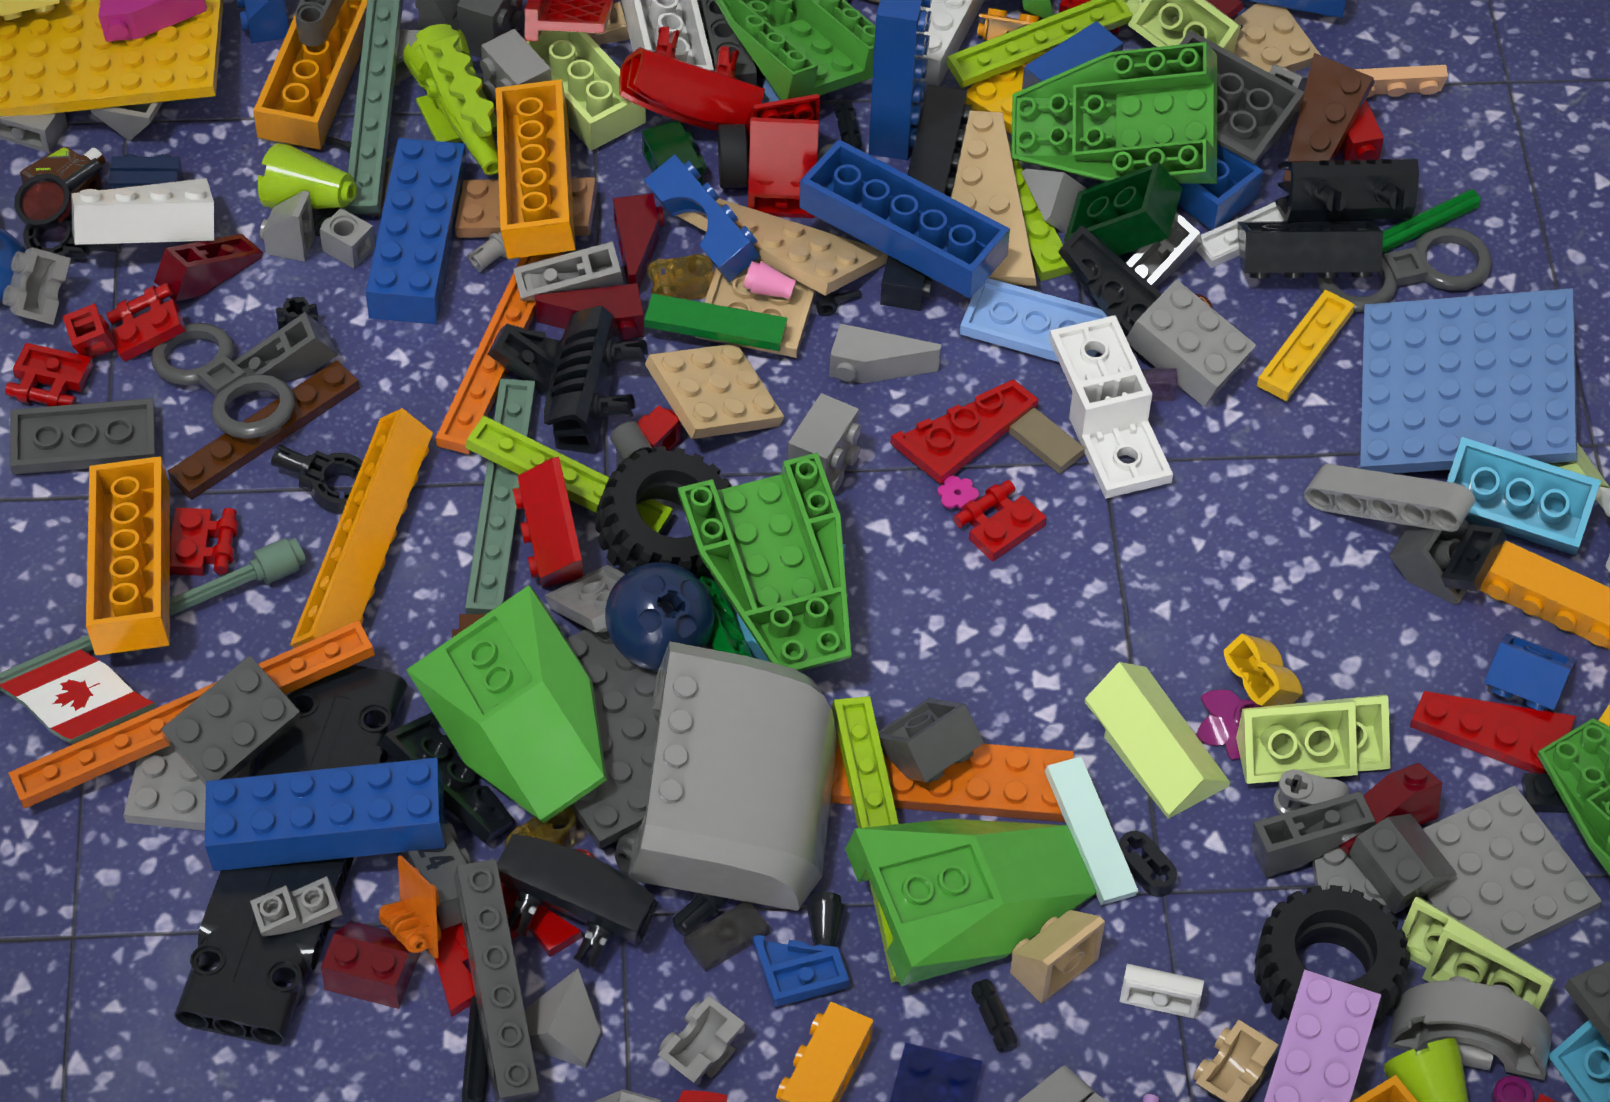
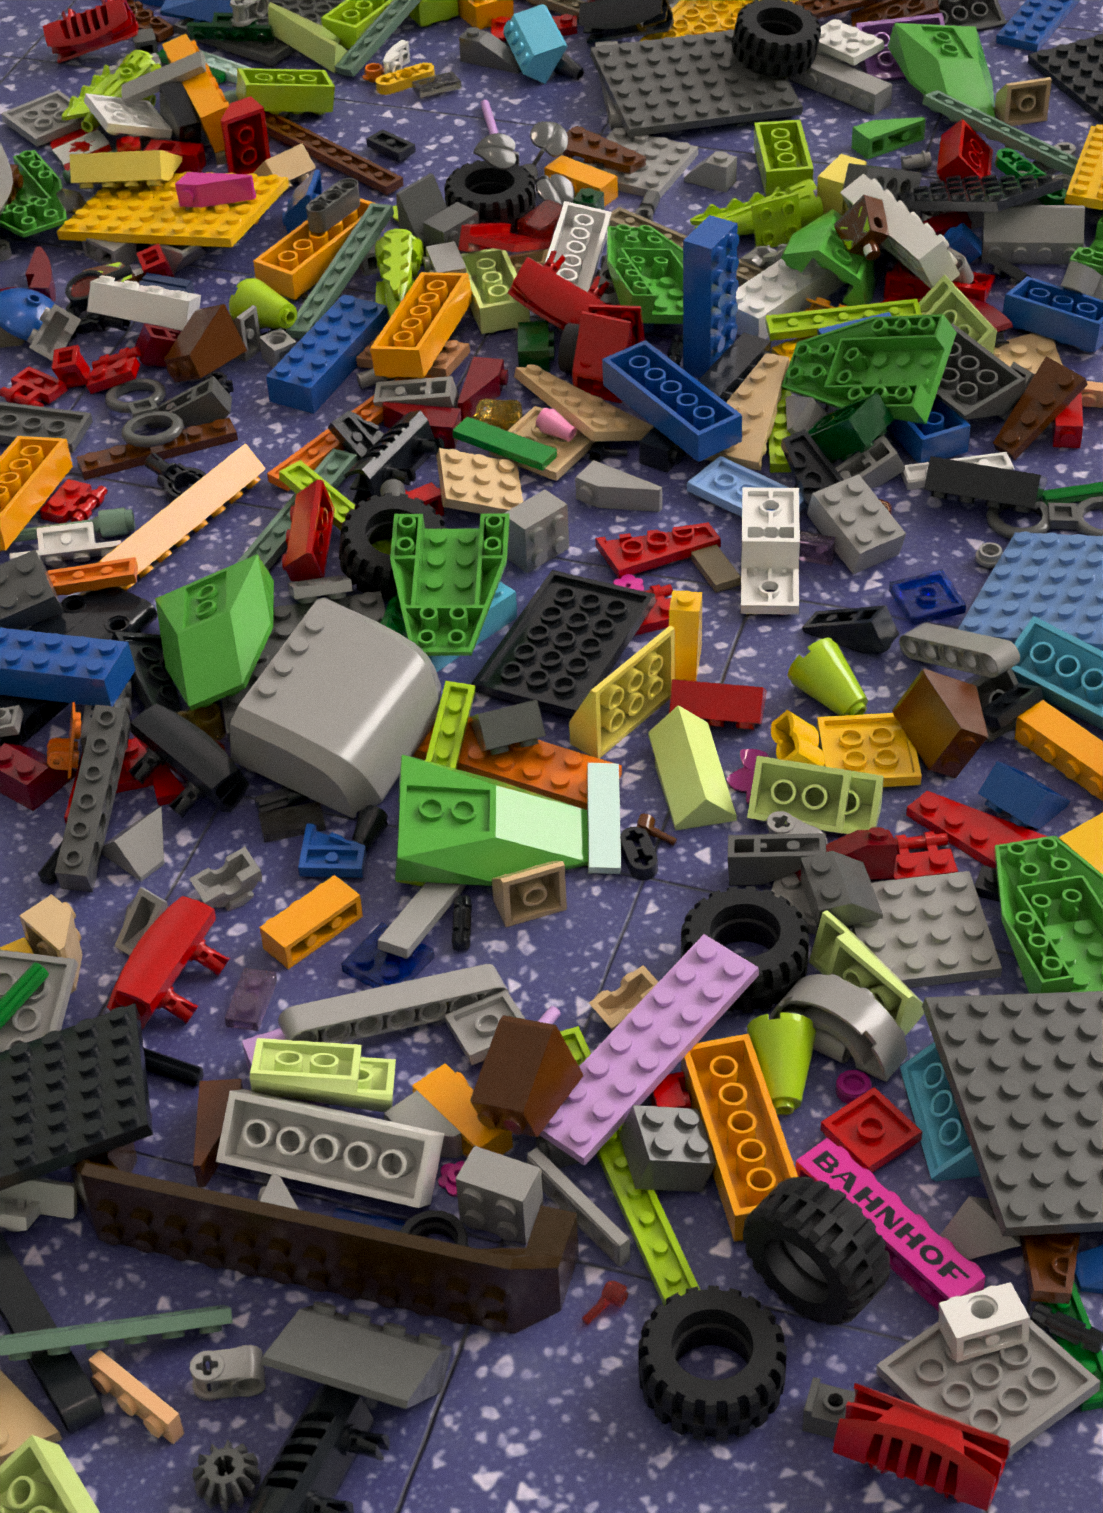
camera: 25 degrees right, 10 degrees down
(113, 137) = (154, 261): none -> red brick
(231, 608) = (69, 543): none -> white bracket
(258, 261) = (204, 344): none -> reddish brown slope
(643, 627) = (364, 592): dark blue piece -> none
(724, 242) = (524, 360): blue arch -> none
(930, 600) = (564, 642): none -> black plate
(950, 1029) = (418, 918): none -> light grey tile
(1040, 661) = (625, 697): none -> light yellow slope
(1072, 559) = (686, 618): none -> yellow slope
(1138, 822) = (647, 823): none -> reddish brown hand
(1144, 634) = (720, 702): none -> red slope
(1161, 991) = (601, 938): white brick -> none
(1248, 489) = (855, 628): none -> black slope
(1260, 574) = (828, 678): none -> lime cone
(1305, 345) = (953, 547): yellow plate -> none
(1307, 423) = (927, 597): none -> clear blue plate
(1339, 651) = (870, 746): none -> yellow plate
(1349, 189) = (1036, 451): black piece -> none
(1349, 344) = (988, 554): none -> light grey plate
(1416, 602) = (942, 721): none -> reddish brown slope
(1467, 784) = (923, 863): none -> red plate

